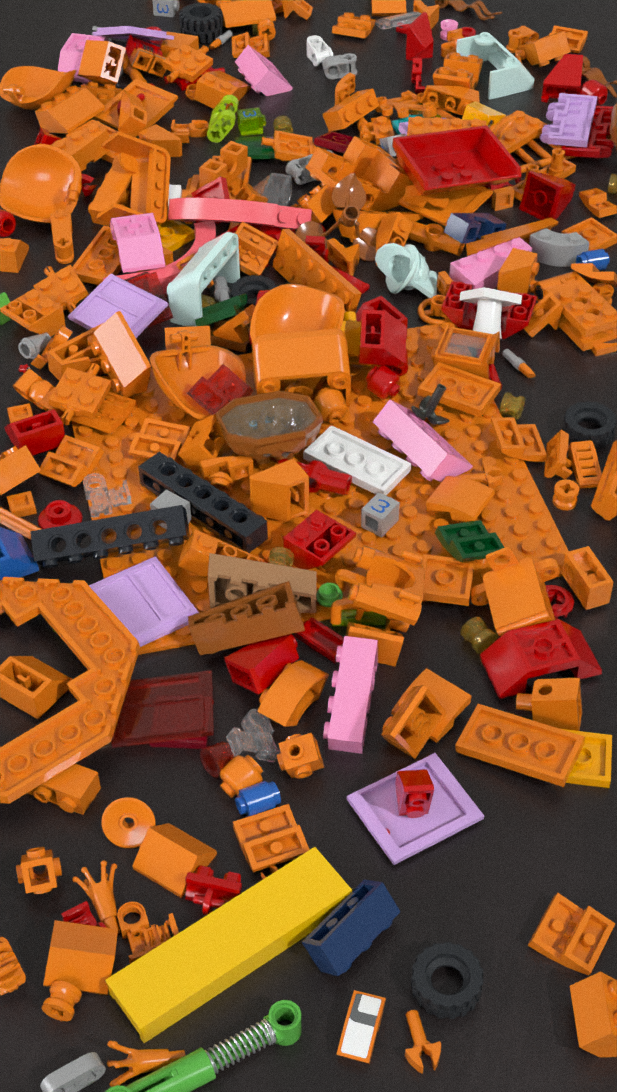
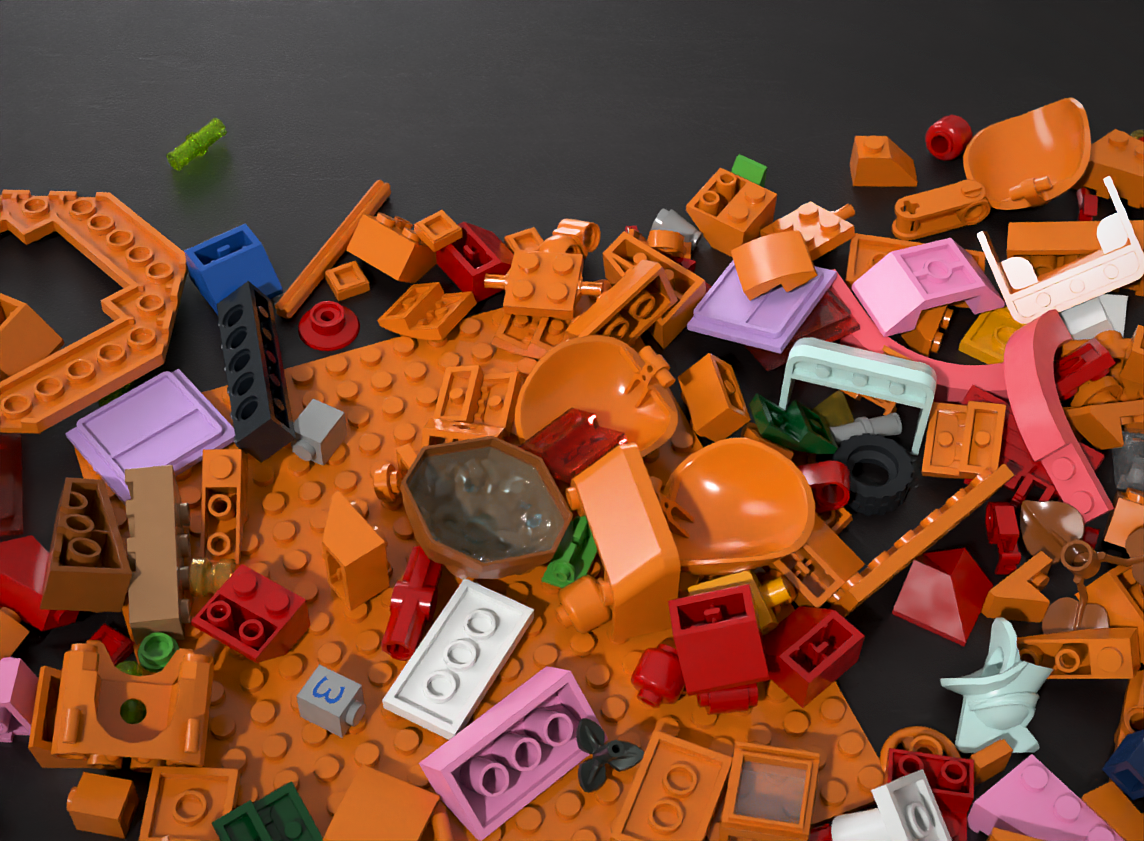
camera: 80 degrees right, 5 degrees up
(17, 433) = (438, 230): none -> orange tile
(100, 292) = (773, 261): none -> orange slope
(102, 498) = (351, 356): clear piece -> none
(208, 504) = (339, 465): black brick -> none
(433, 625) = (103, 804): none -> orange brick

